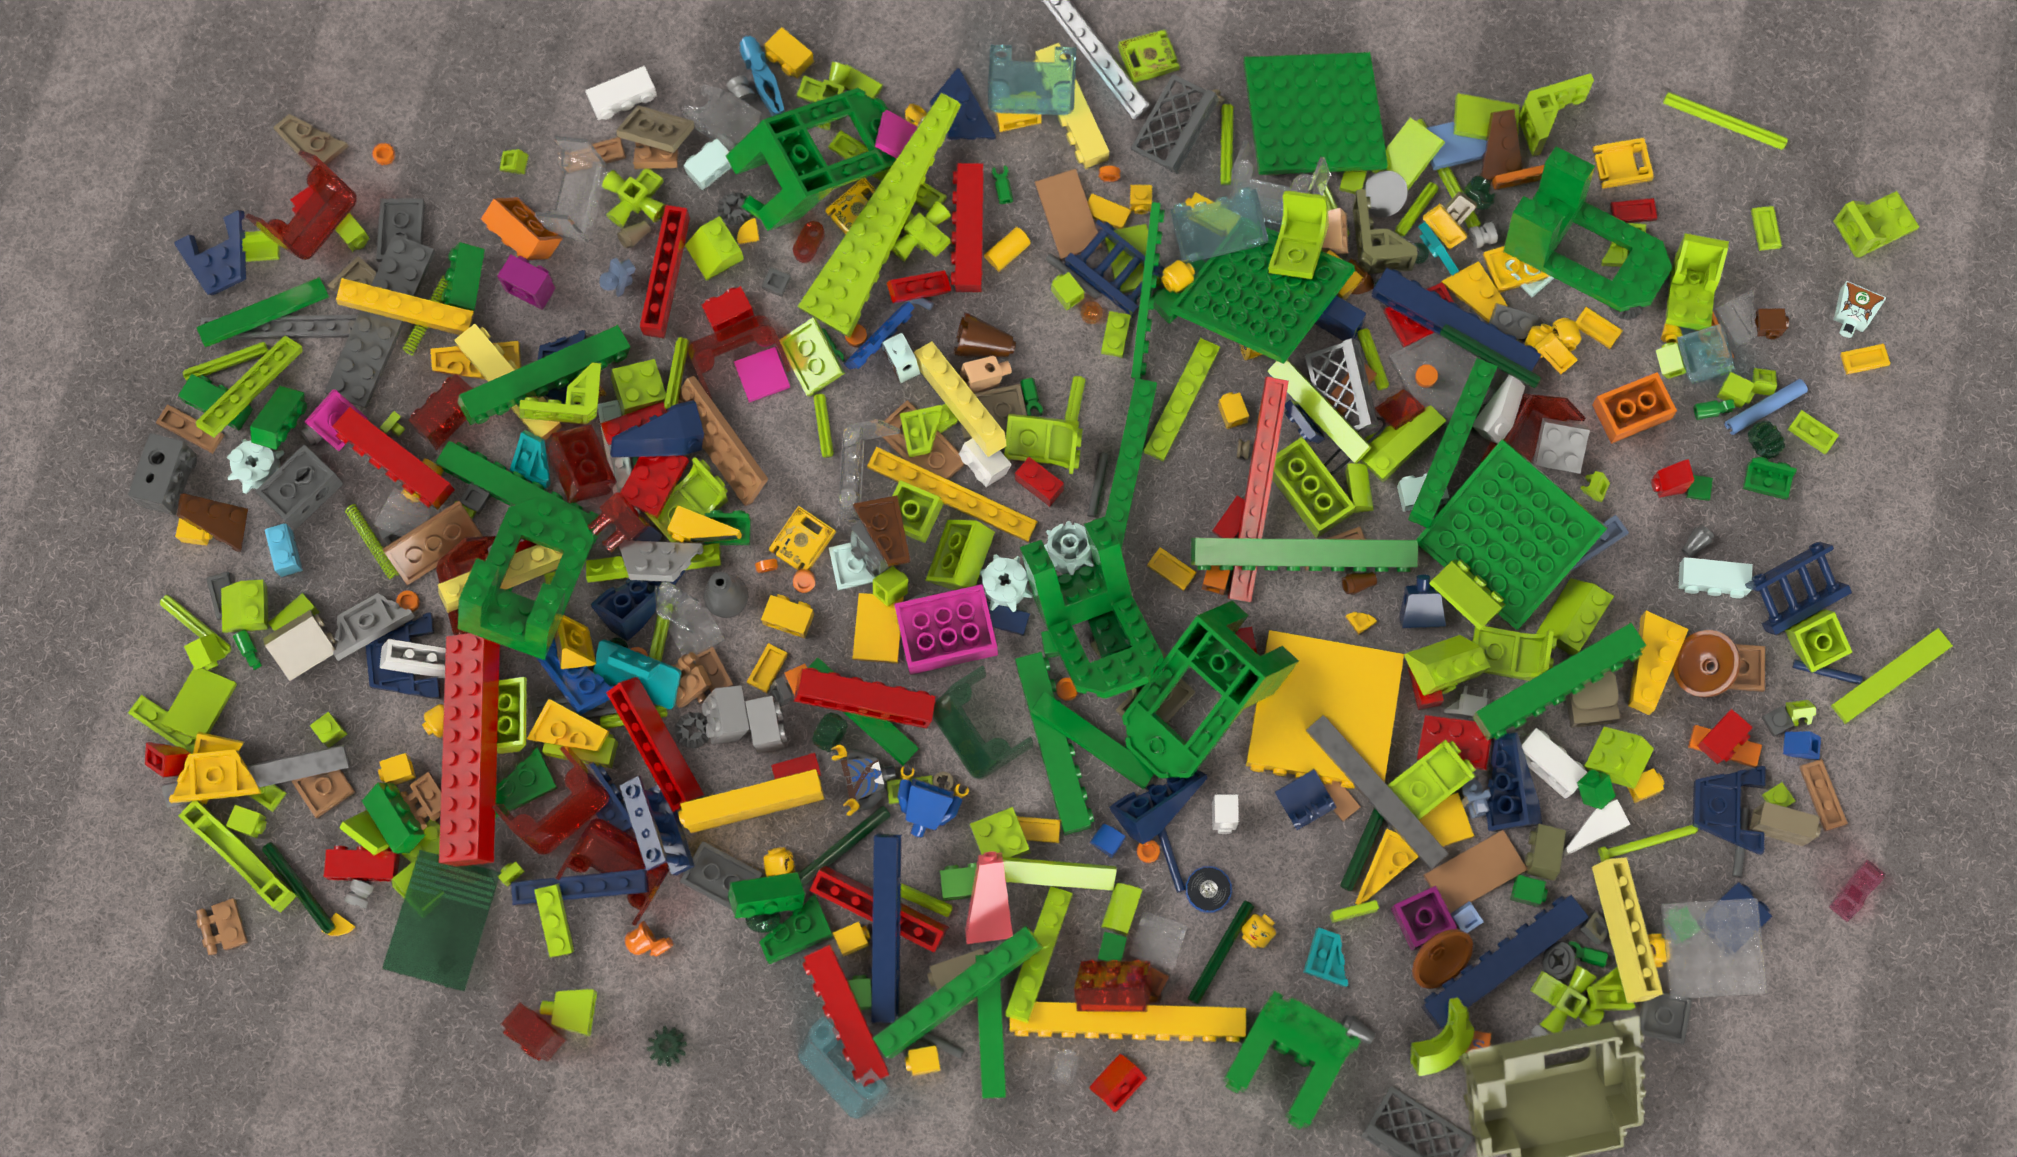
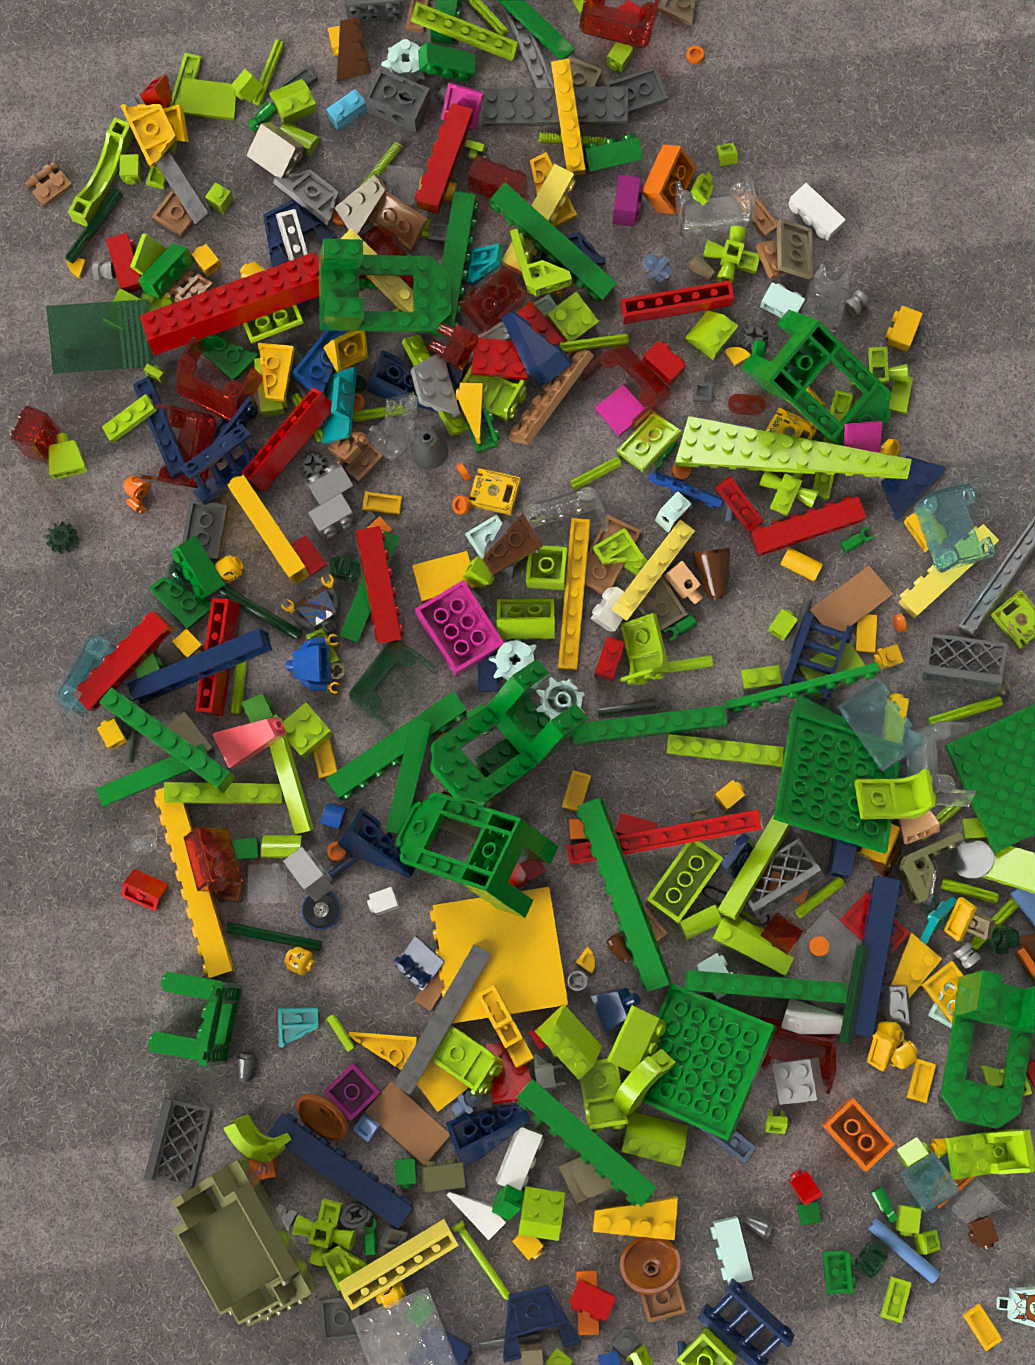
camera: 70 degrees right, 5 degrees up
(408, 569) = (361, 203): none -> wing
(547, 196) = (702, 188): none -> lime hinge
(755, 59) = (875, 315): dark azure arm -> none
(788, 616) = (428, 503): yellow brick -> none
(1091, 312) = (772, 651): clear orange tile -> none
(1166, 884) = (309, 873): none -> light grey brick
(1178, 276) = (825, 708): yellow head -> none
(1362, 851) = (393, 1023): dark green axle -> none
(1382, 634) = (577, 981): none -> light grey wheel
(1406, 726) = (505, 1026): none -> yellow slope
(1513, 602) = (640, 1080): none -> lime arch

